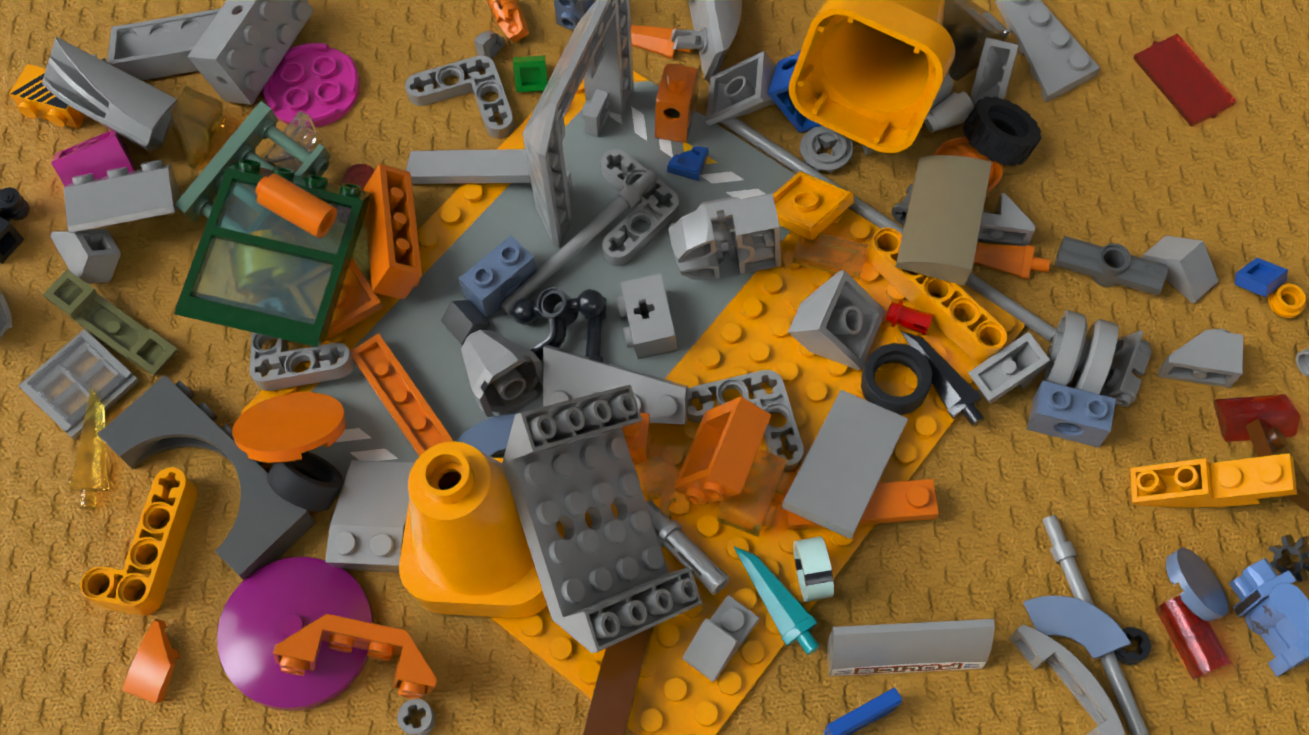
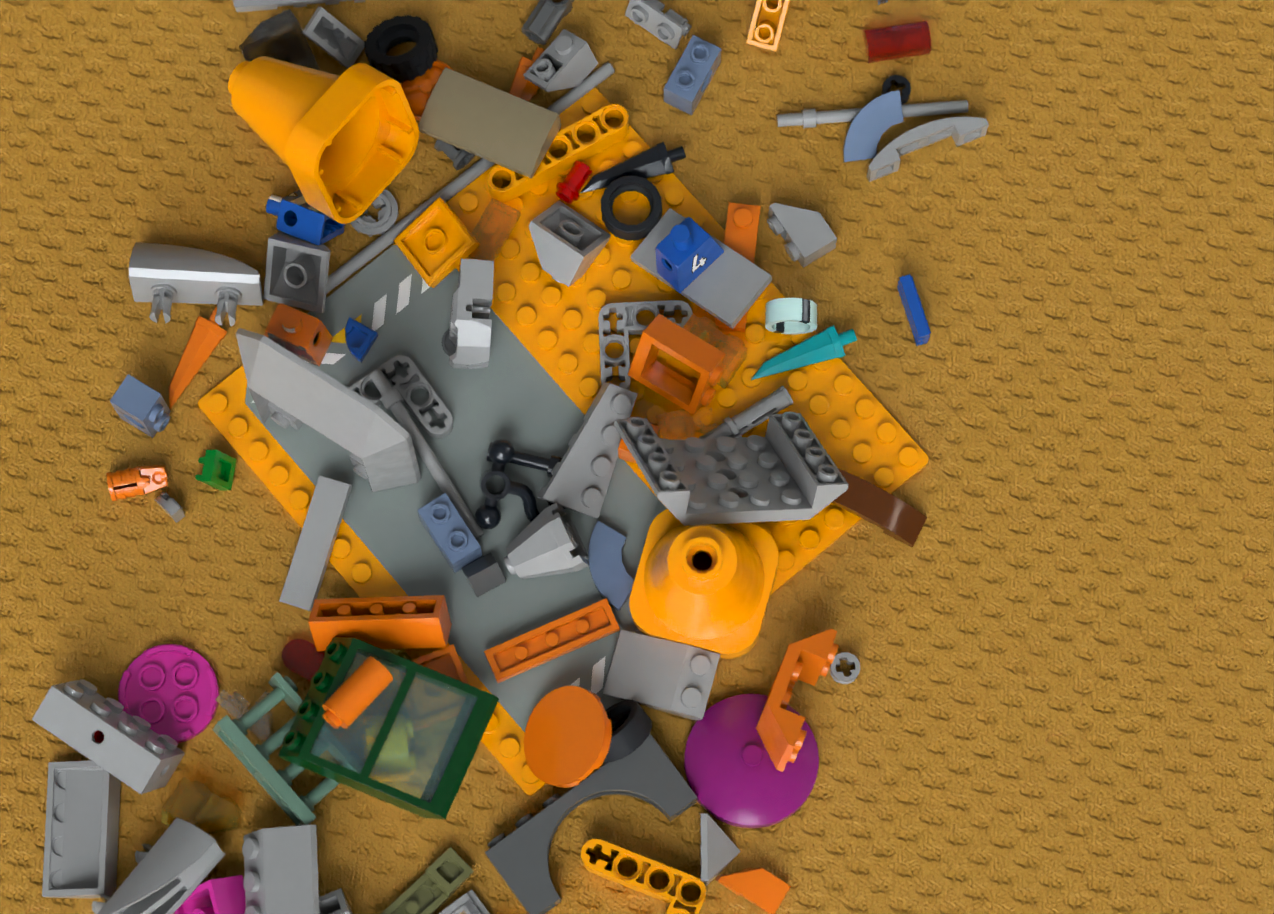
camera: 80 degrees left, 10 degrees up
(191, 609) = (715, 849): none -> light grey slope
(283, 361) = (485, 751): light grey beam -> none
(477, 84) = (214, 525): light grey beam -> none
(655, 333) = (504, 396): light grey brick -> none
(720, 638) = (830, 405): light grey slope -> none
(854, 434) = (685, 254): none -> blue torso
(909, 647) = (869, 260): light grey slope -> none
(923, 571) = (804, 232): none -> light grey slope
(1007, 225) = (495, 70): light grey slope -> none
(1010, 367) = (642, 111): light grey slope -> none
(1036, 280) = (562, 64): none -> light grey slope
(1080, 354) = (644, 50): light grey wheel -> none
(1200, 586) = (860, 23): sand blue tile -> none

